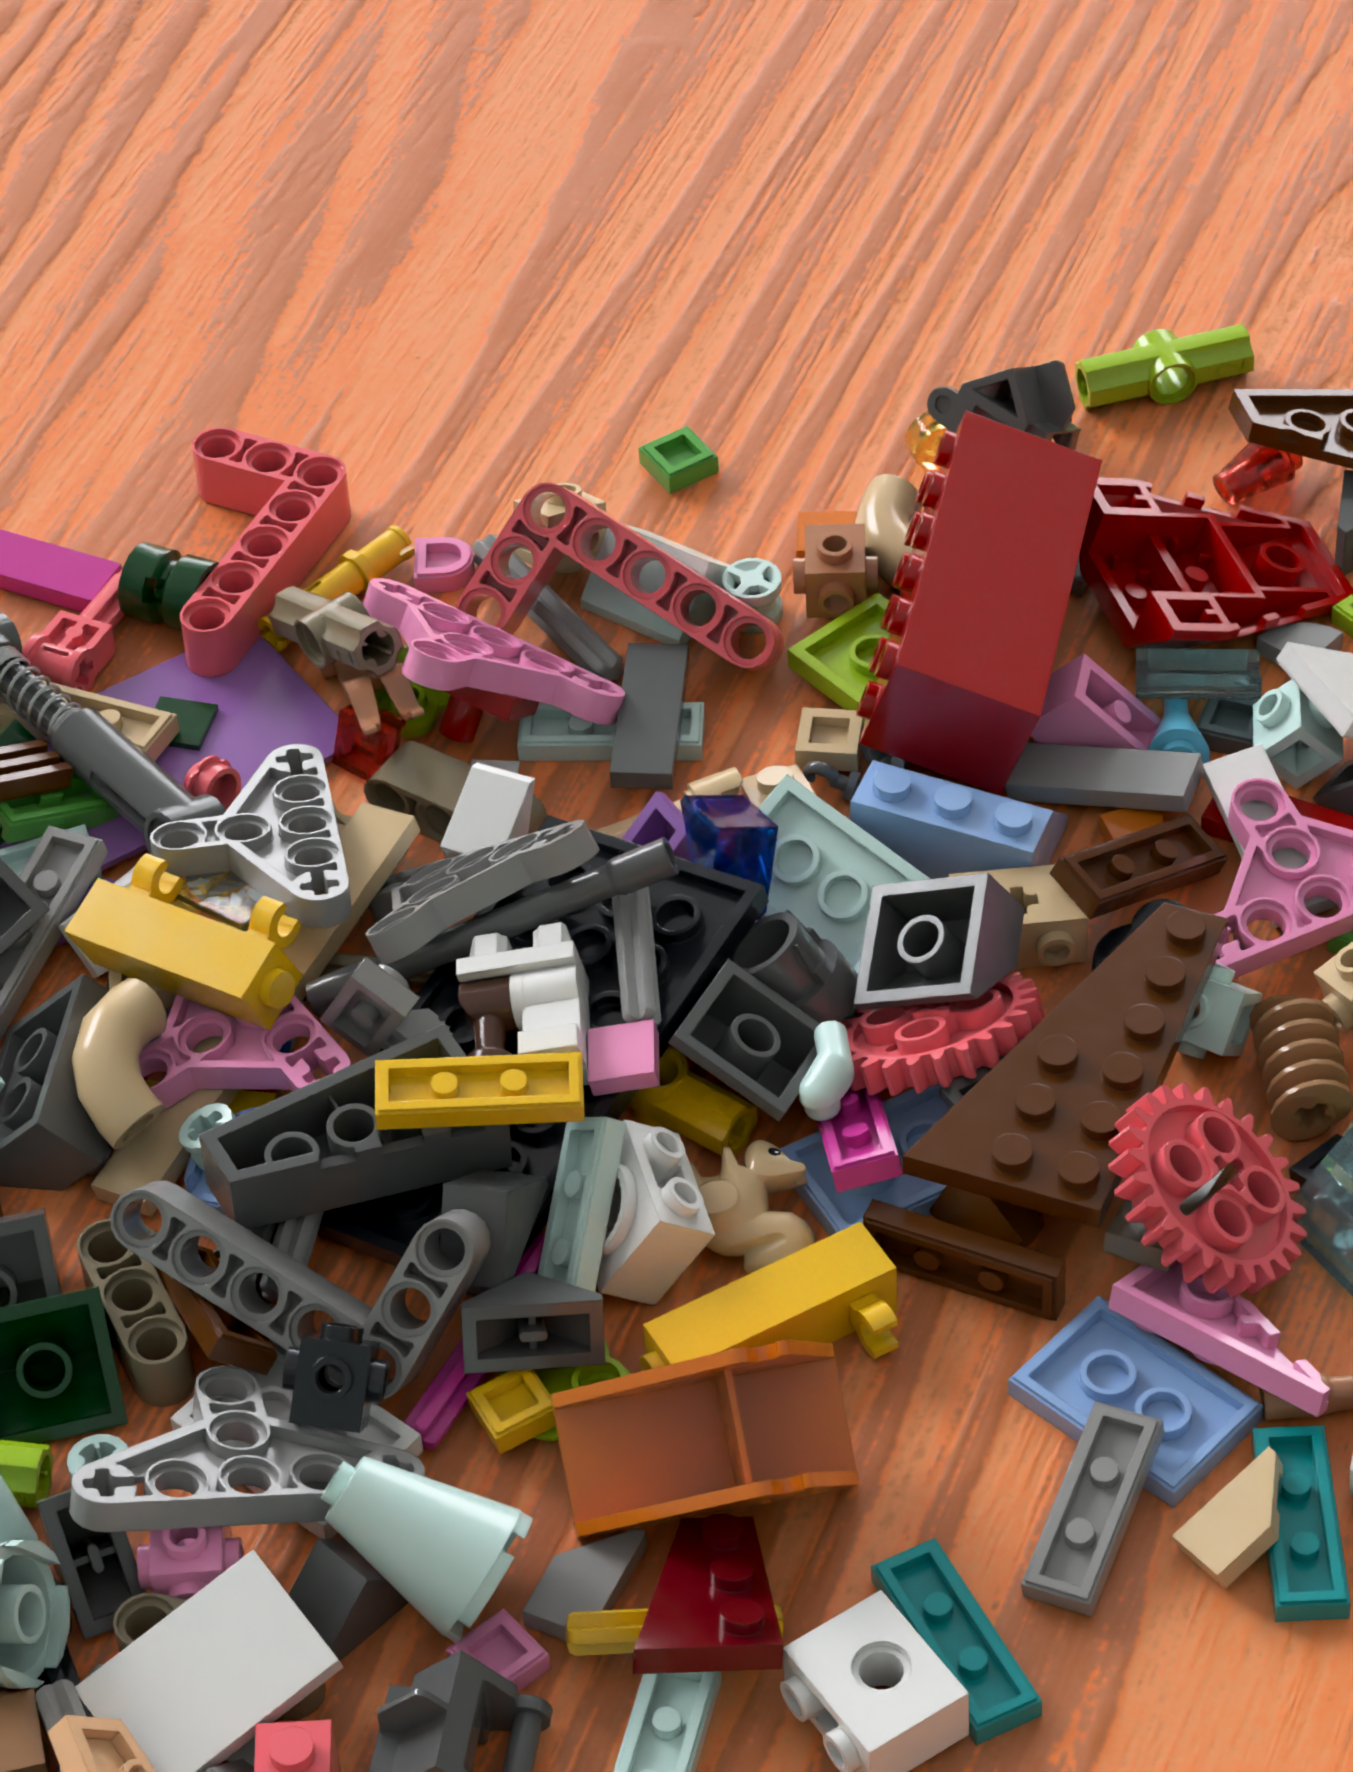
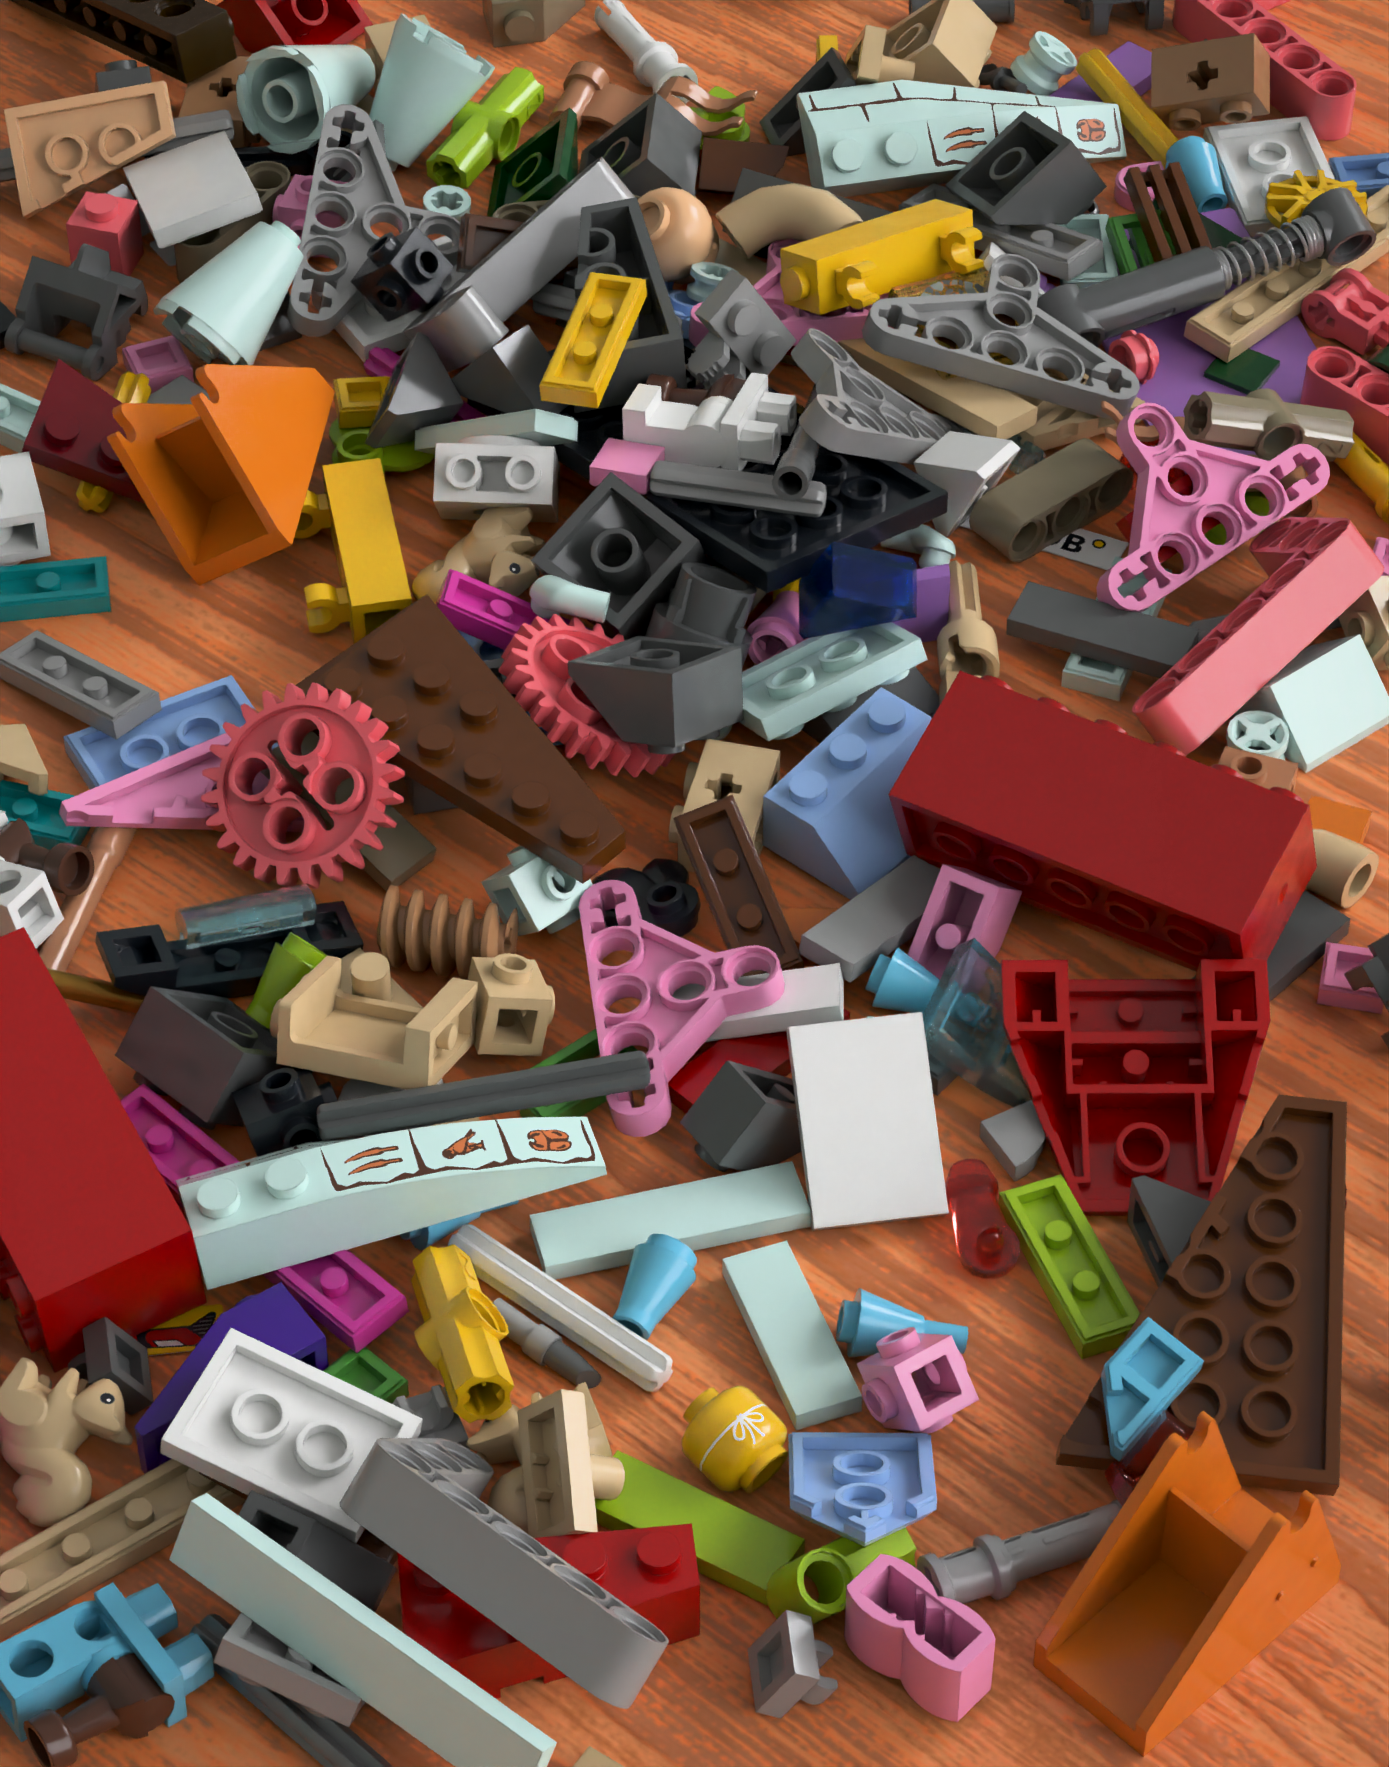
camera: 105 degrees right, 0 degrees up
(150, 1154) = (679, 232): none -> light nougat piece

